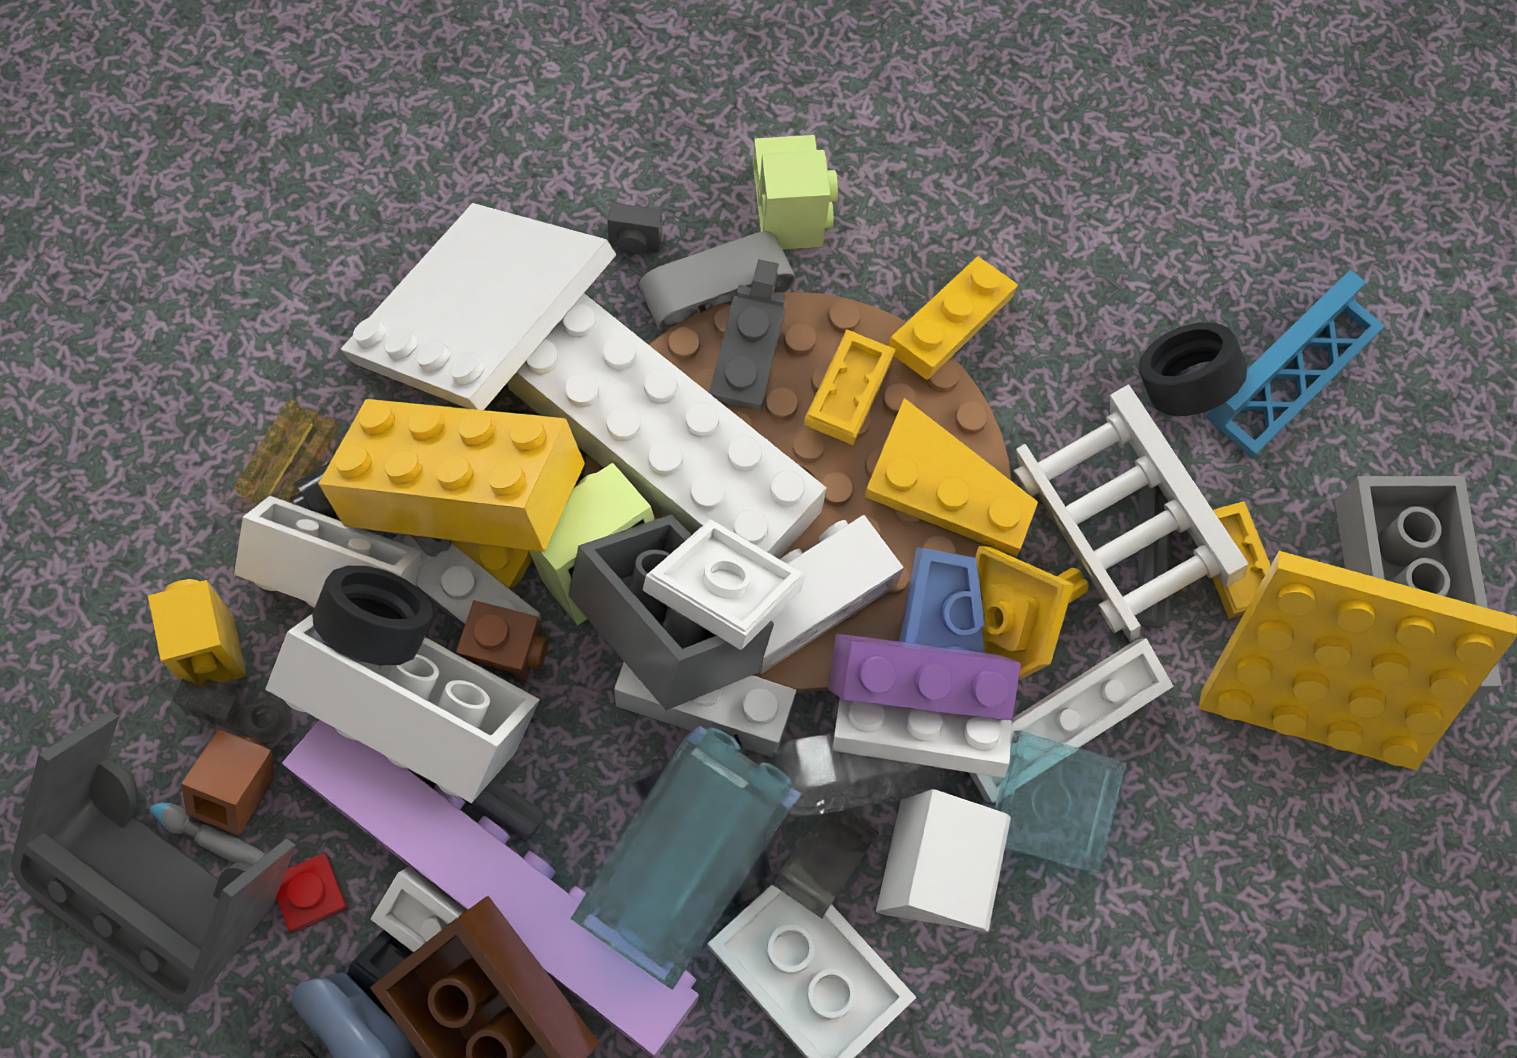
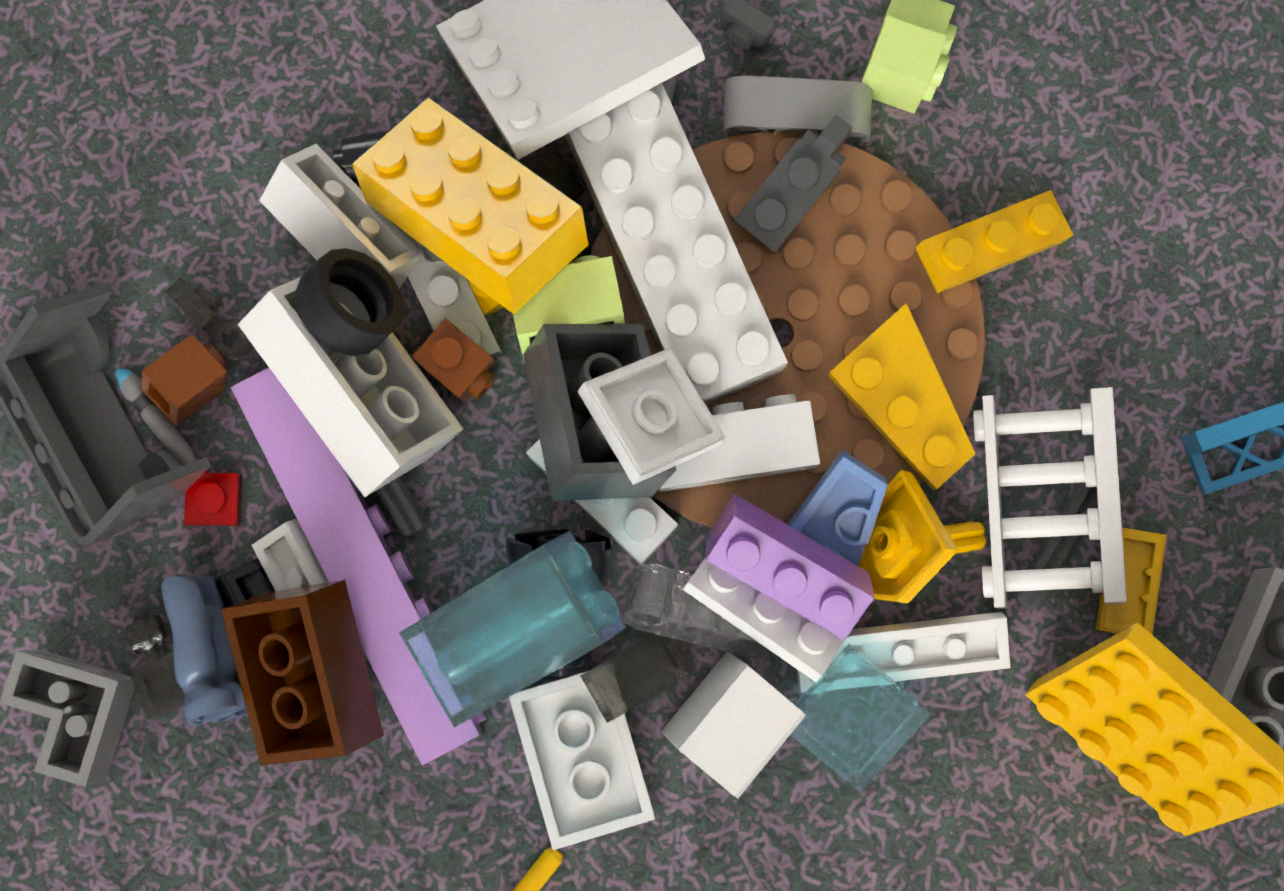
camera: 30 degrees right, 15 degrees up
(196, 633) = (205, 243): yellow brick -> none
(307, 419) = (339, 90): clear yellow tile -> none
(849, 387) = (862, 270): yellow plate -> none
(1200, 389) = (1183, 420): black tyre -> none

